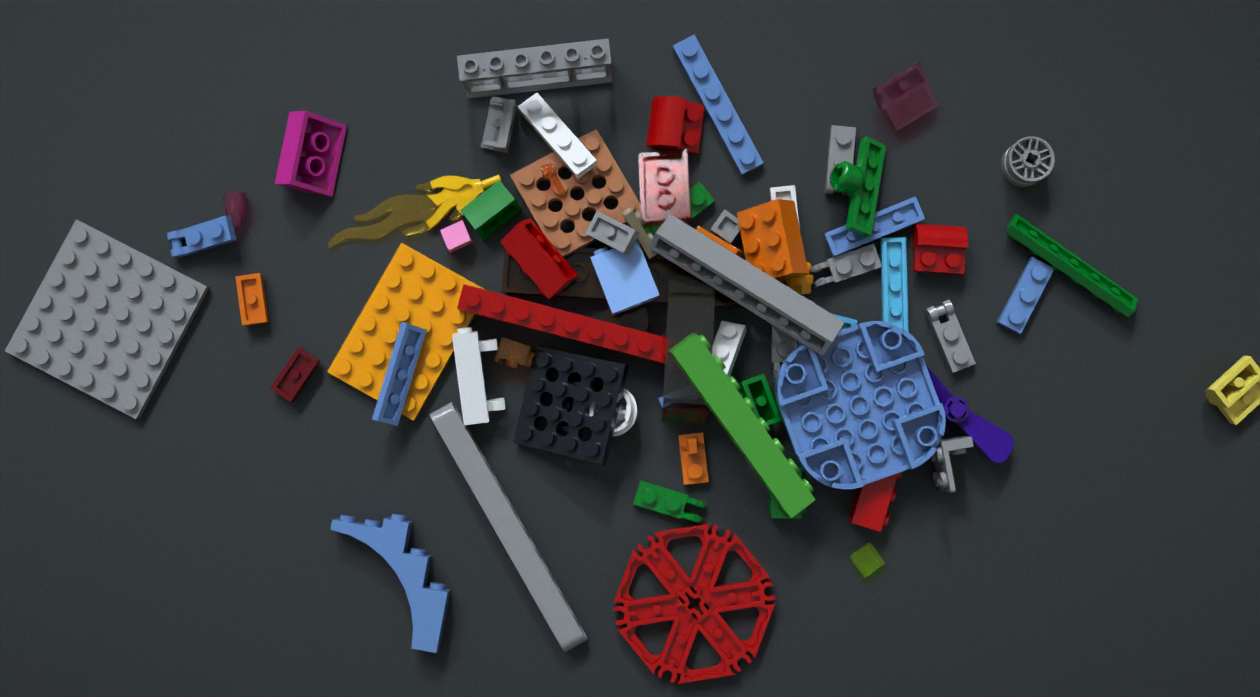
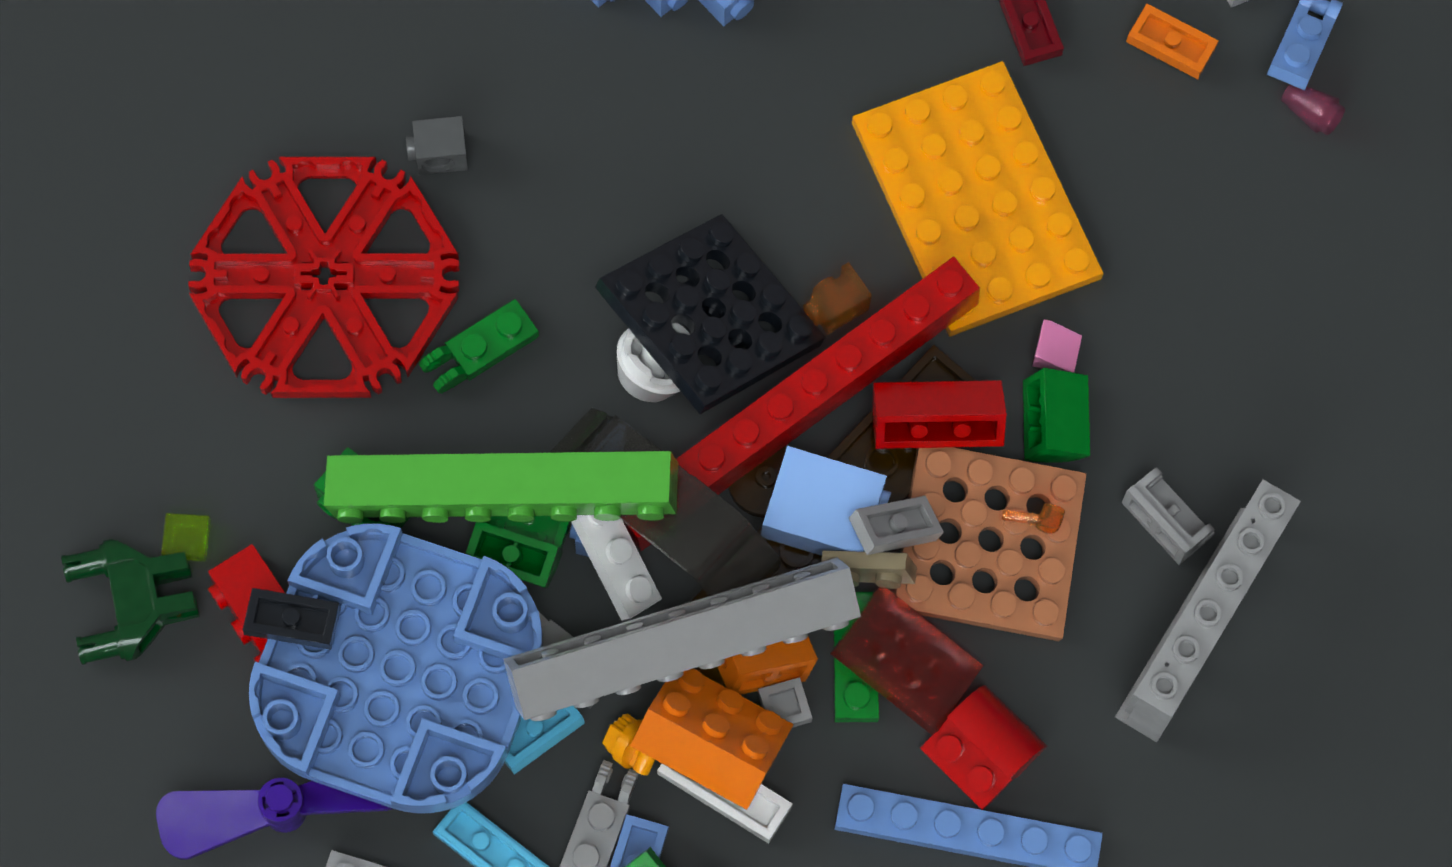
camera: 125 degrees right, 15 degrees down
(310, 153) = (1314, 248): dark pink slope -> none
(399, 374) = (926, 135): medium blue plate -> none
(417, 208) = (1121, 344): clear yellow piece -> none
(471, 376) = (850, 221): white brick -> none
(508, 527) = (622, 127): light grey beam -> none
(557, 135) = (1092, 574): white plate -> none
(586, 604) = (438, 145): none -> dark grey brick
(693, 458) = (509, 420): orange hinge -> none
(879, 469) = (291, 618): none -> black plate
(914, 558) = (135, 595): none -> dark green connector
(943, 476) = (242, 746): light grey bracket -> none

